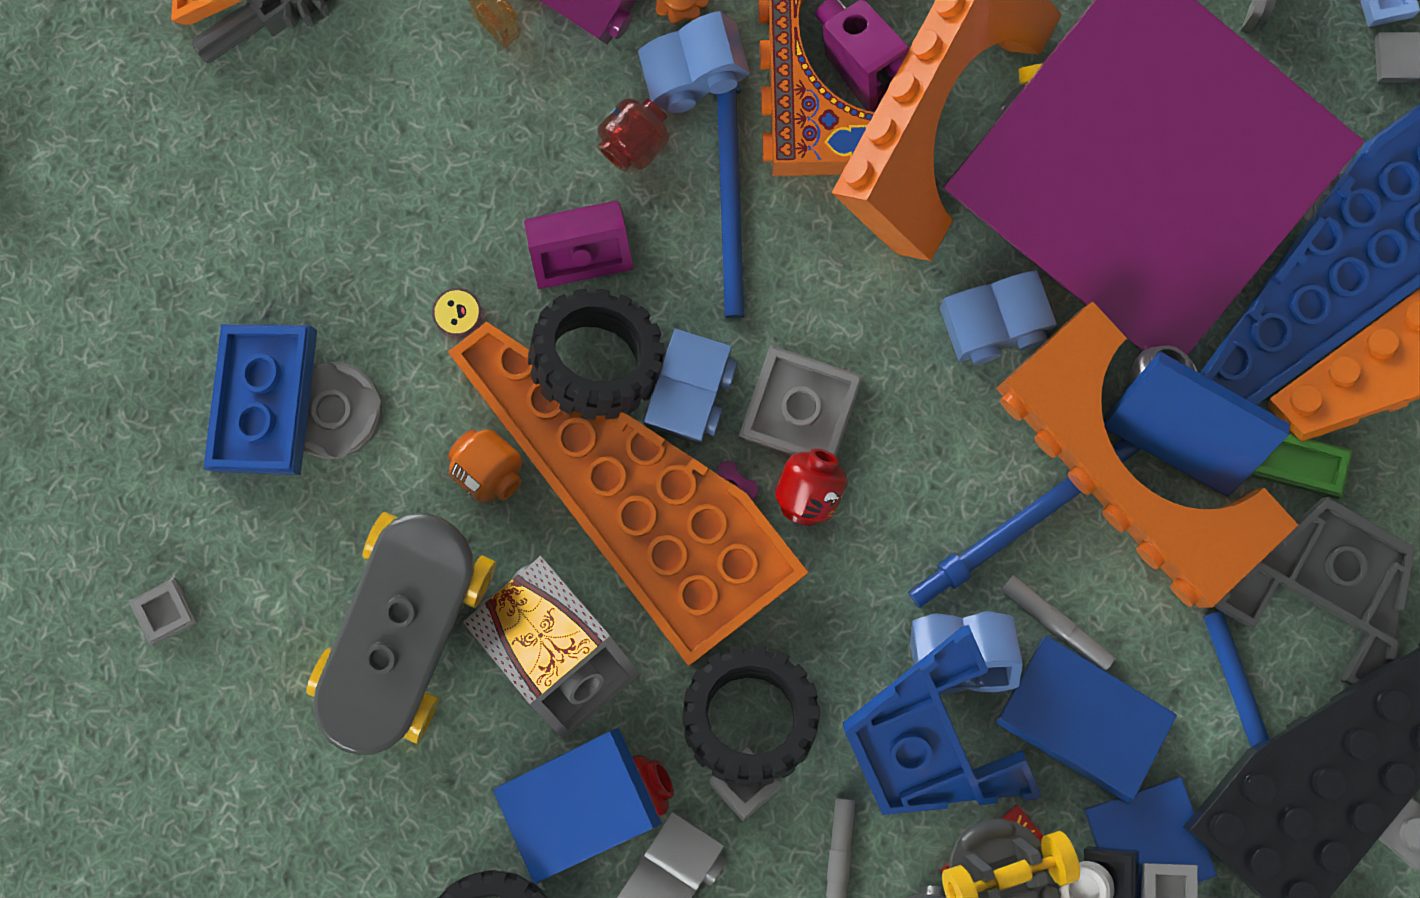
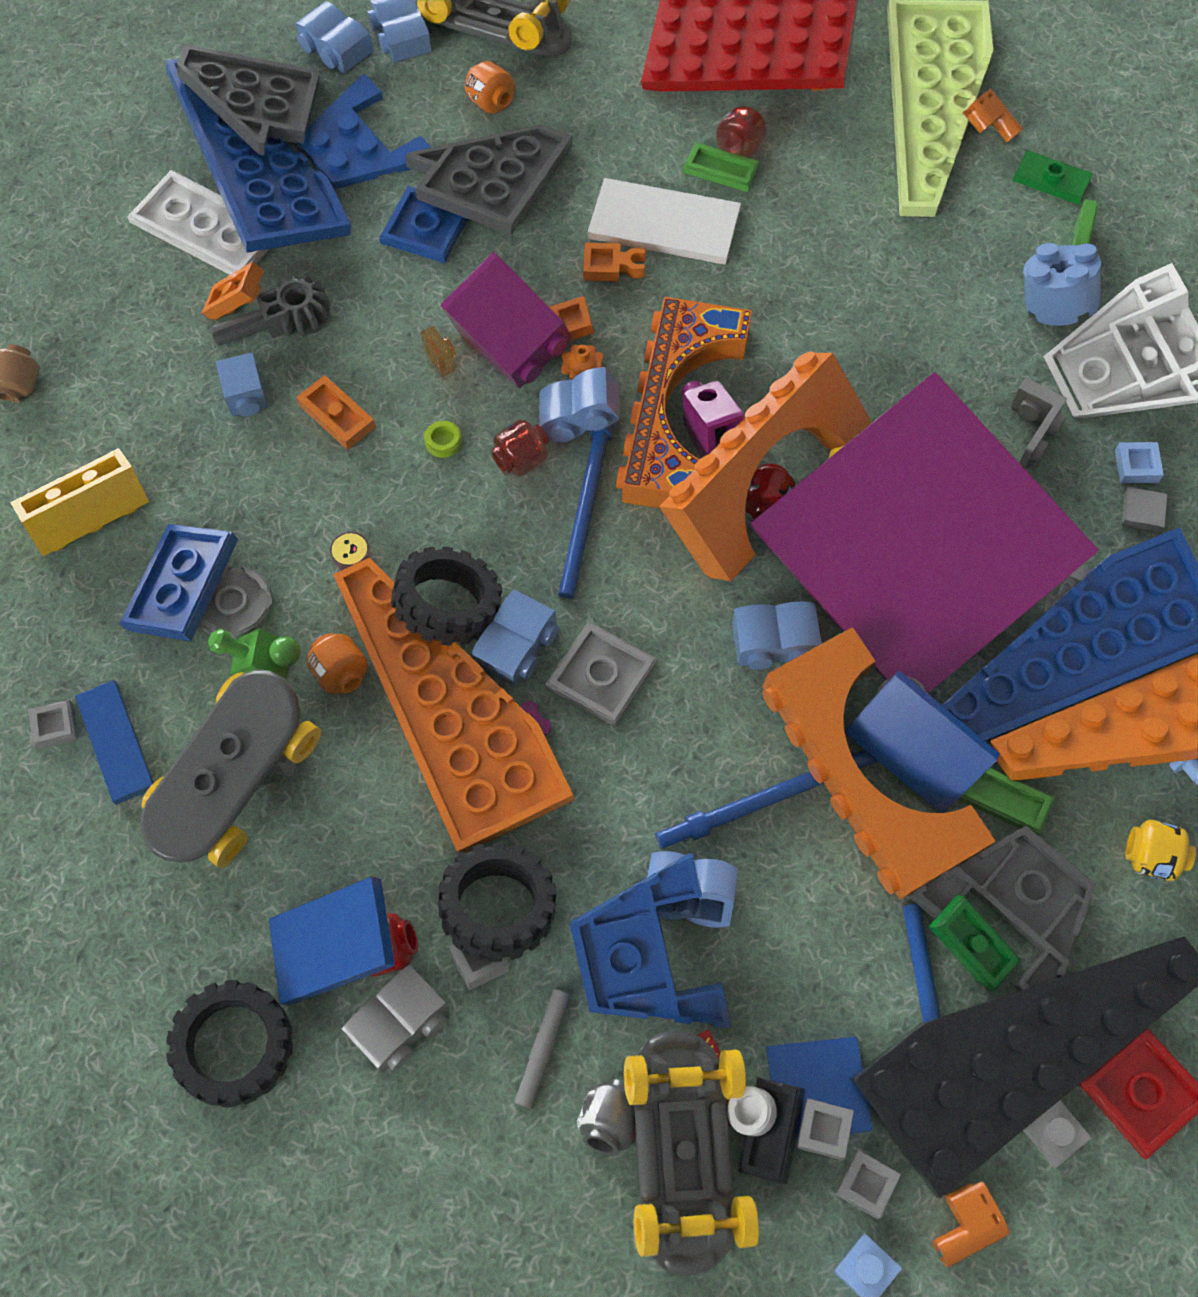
camera: 15 degrees right, 15 degrees down
(106, 323) = (80, 502): none -> yellow brick
(245, 617) = (114, 742): none -> blue tile
(258, 117) = (242, 385): none -> medium blue brick
(384, 471) = (256, 651): none -> bright green piece
(387, 128) = (336, 412): none -> orange plate
(530, 136) = (443, 439): none -> lime tile
(551, 647) = (349, 814): slope -> none
(578, 244) = (456, 521): magenta panel -> none
(811, 487) = (592, 731): red head -> none
(957, 132) = (767, 487): none -> red head
(1058, 623) = (776, 887): light grey piece -> none
(1086, 719) = (783, 969): blue tile -> none
(1292, 644) = (974, 943): none -> green plate

